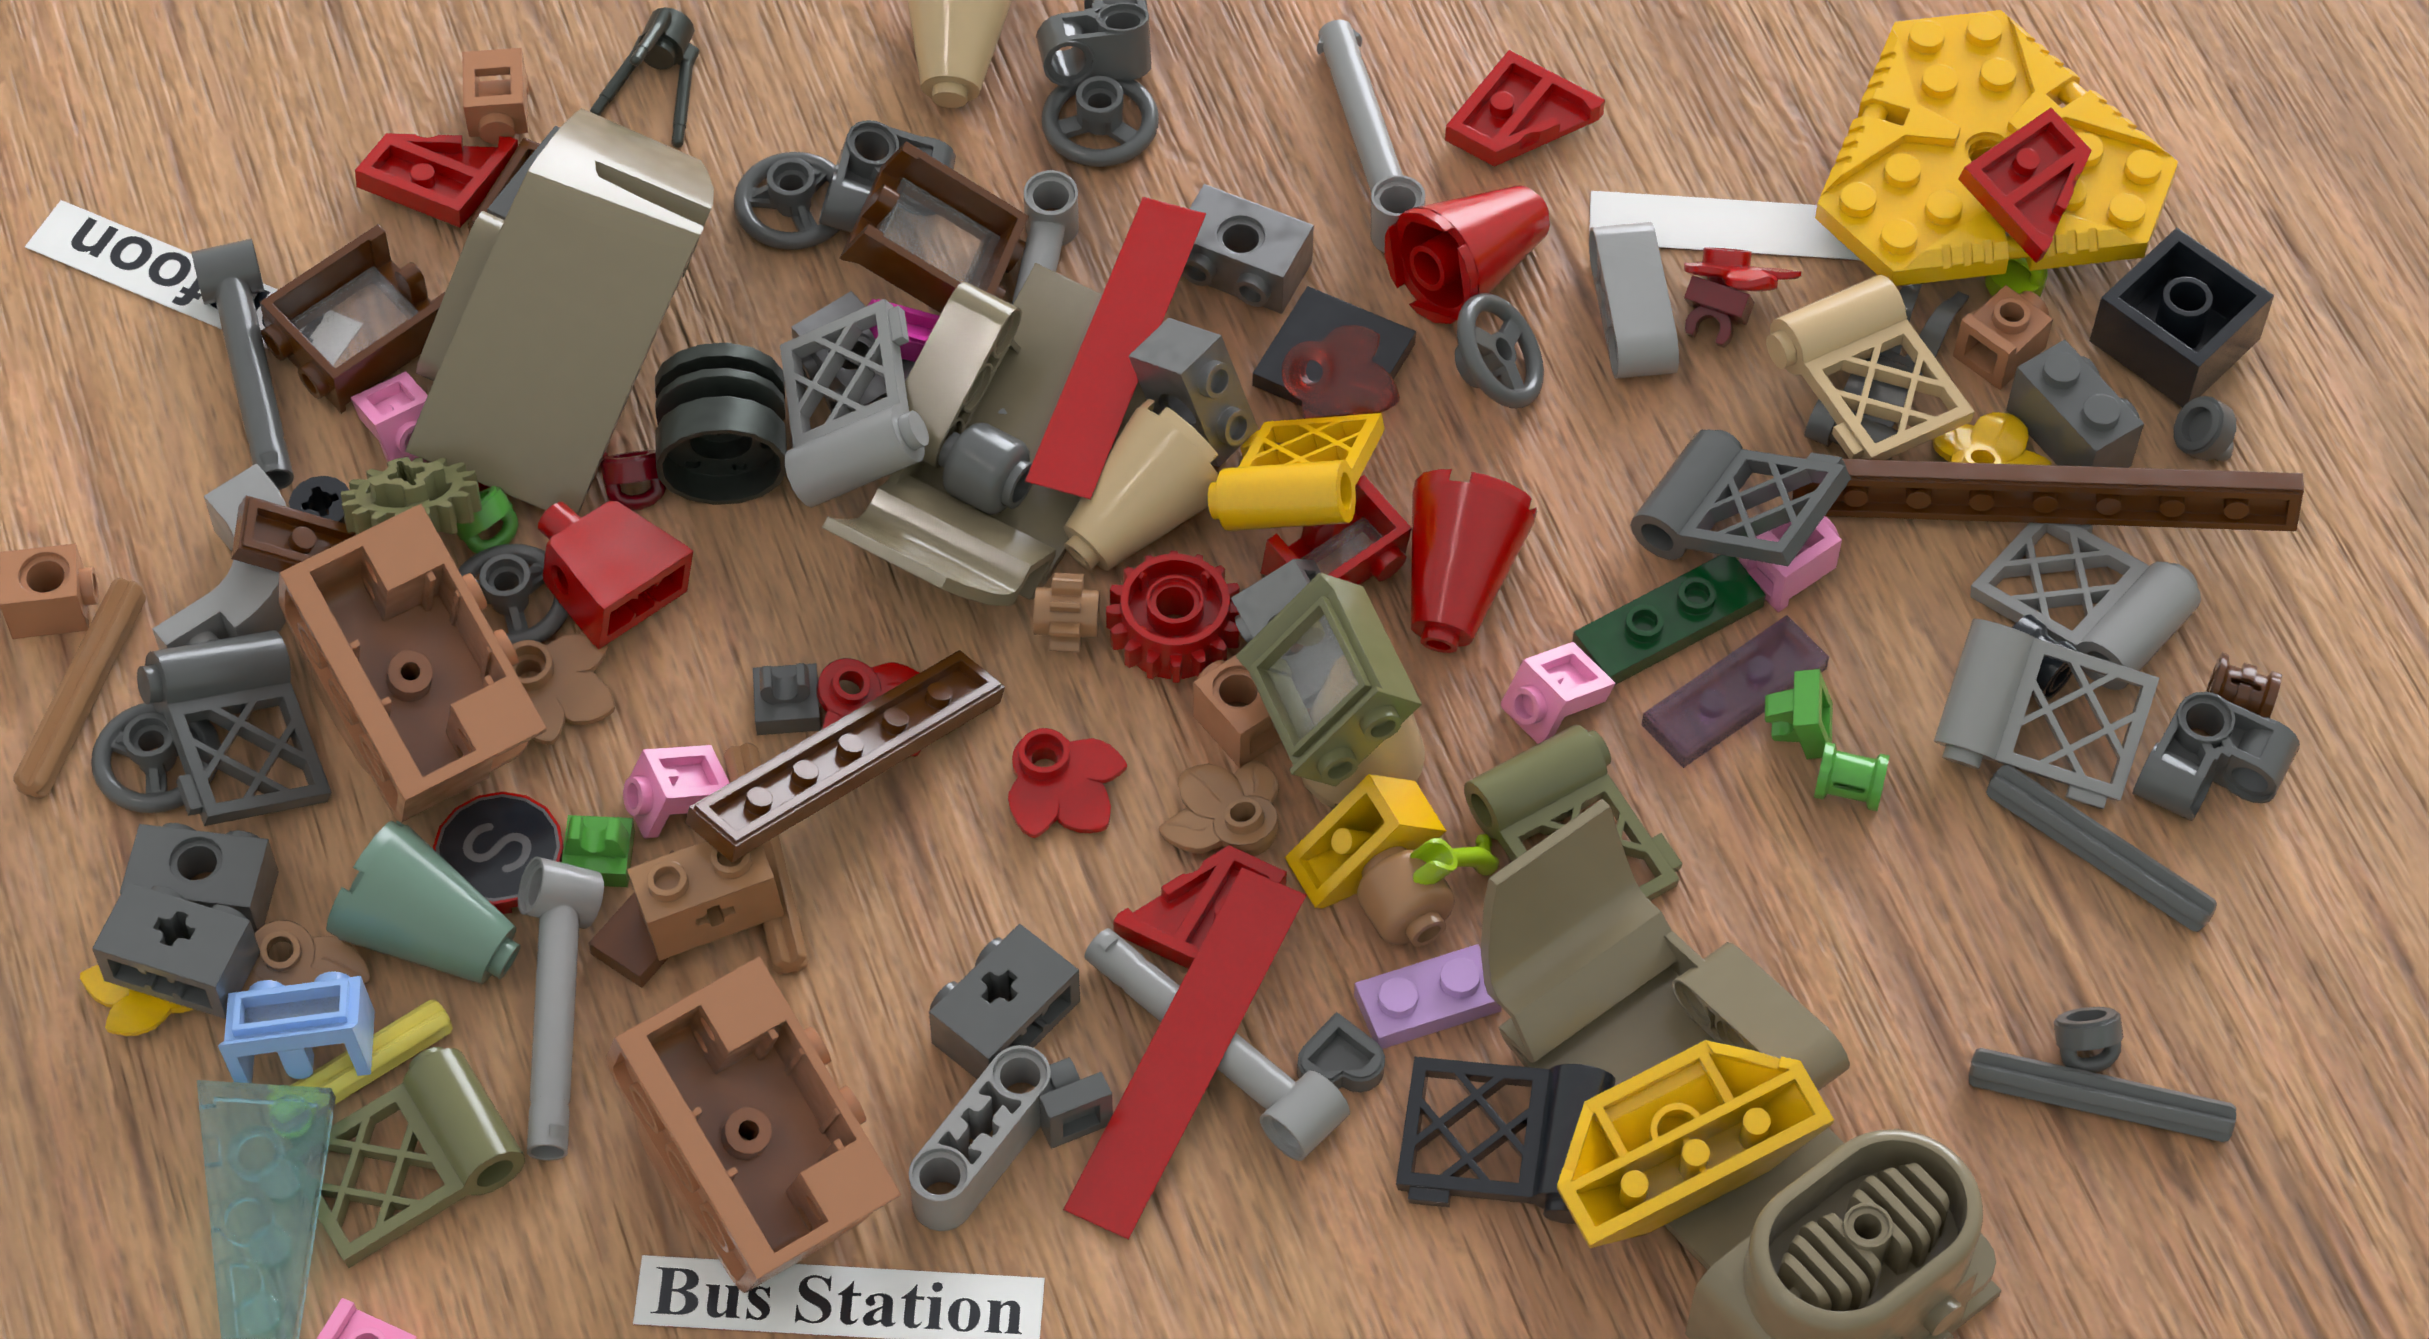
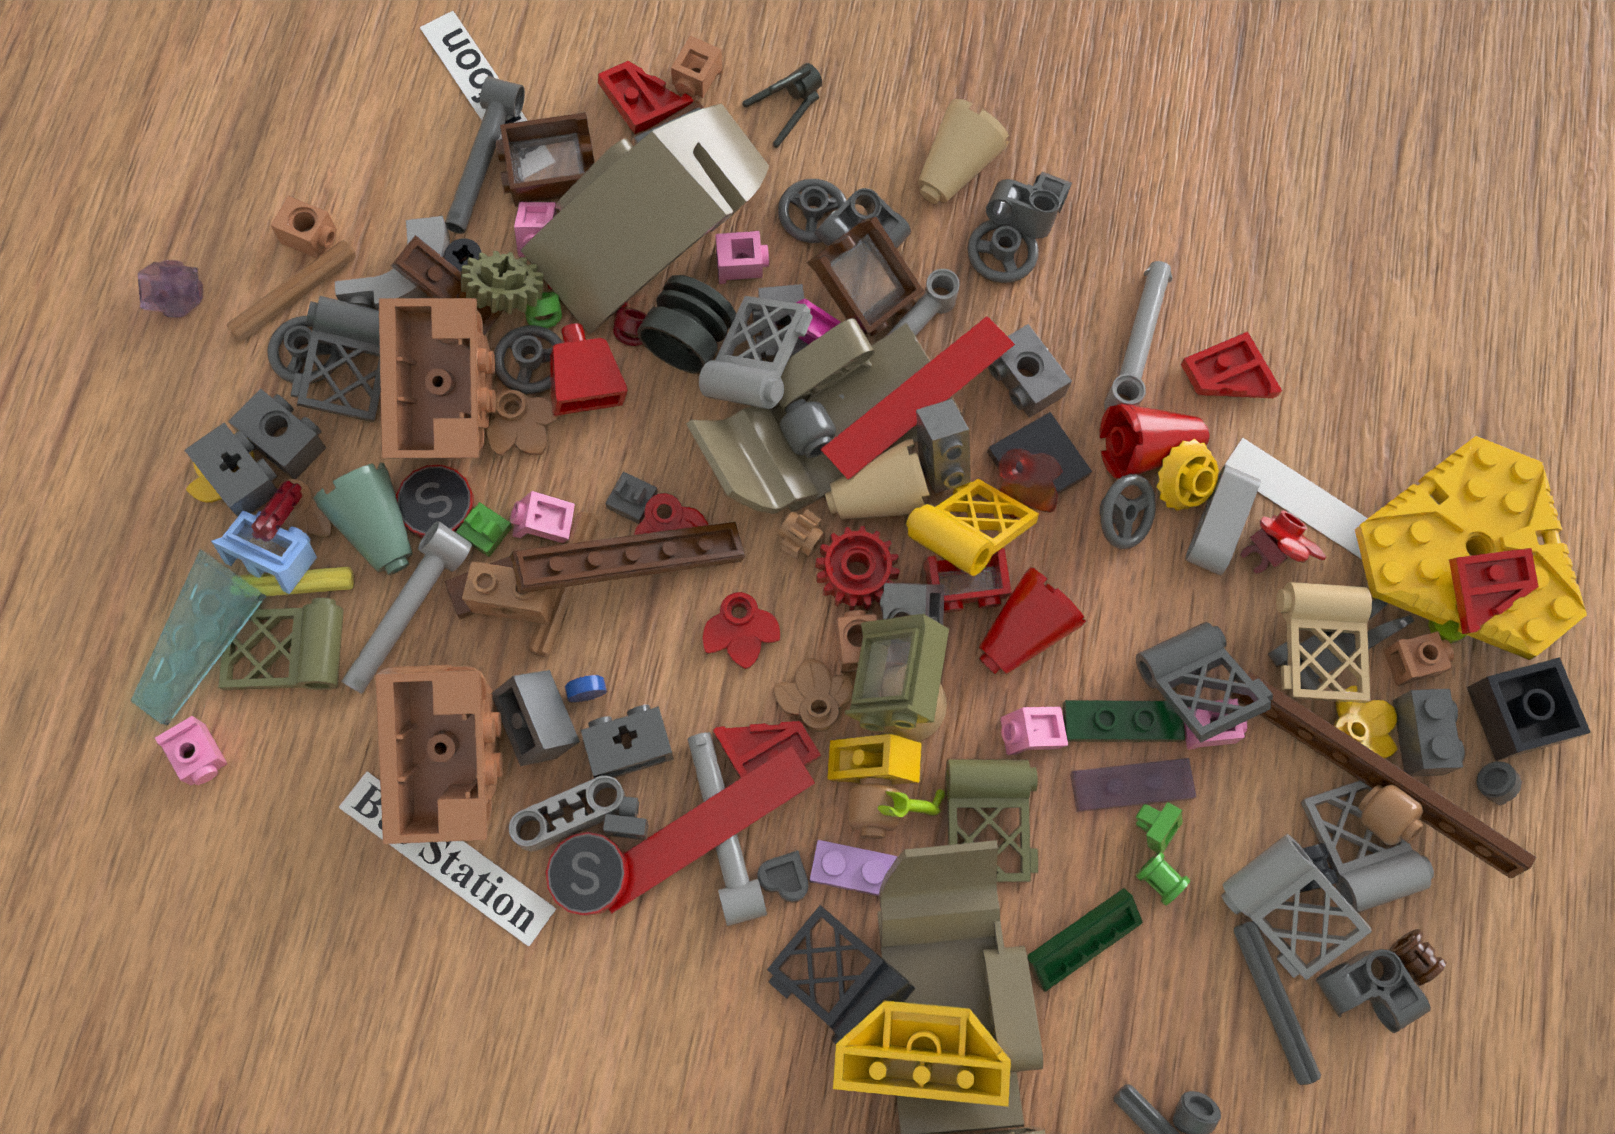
camera: 25 degrees right, 15 degrees up
(287, 959) = (276, 511): none -> dark red axle
(731, 303) = (740, 256): none -> bright pink brick
(868, 1041) = (535, 717): none -> dark grey brick
(894, 968) = (585, 688): none -> blue tile
(1060, 1201) = (587, 874): none -> black tile
(1551, 265) = (1187, 475): none -> yellow piece
(1802, 899) = (1084, 939): none -> dark green plate
(2092, 530) = (1391, 814): none -> medium nougat head

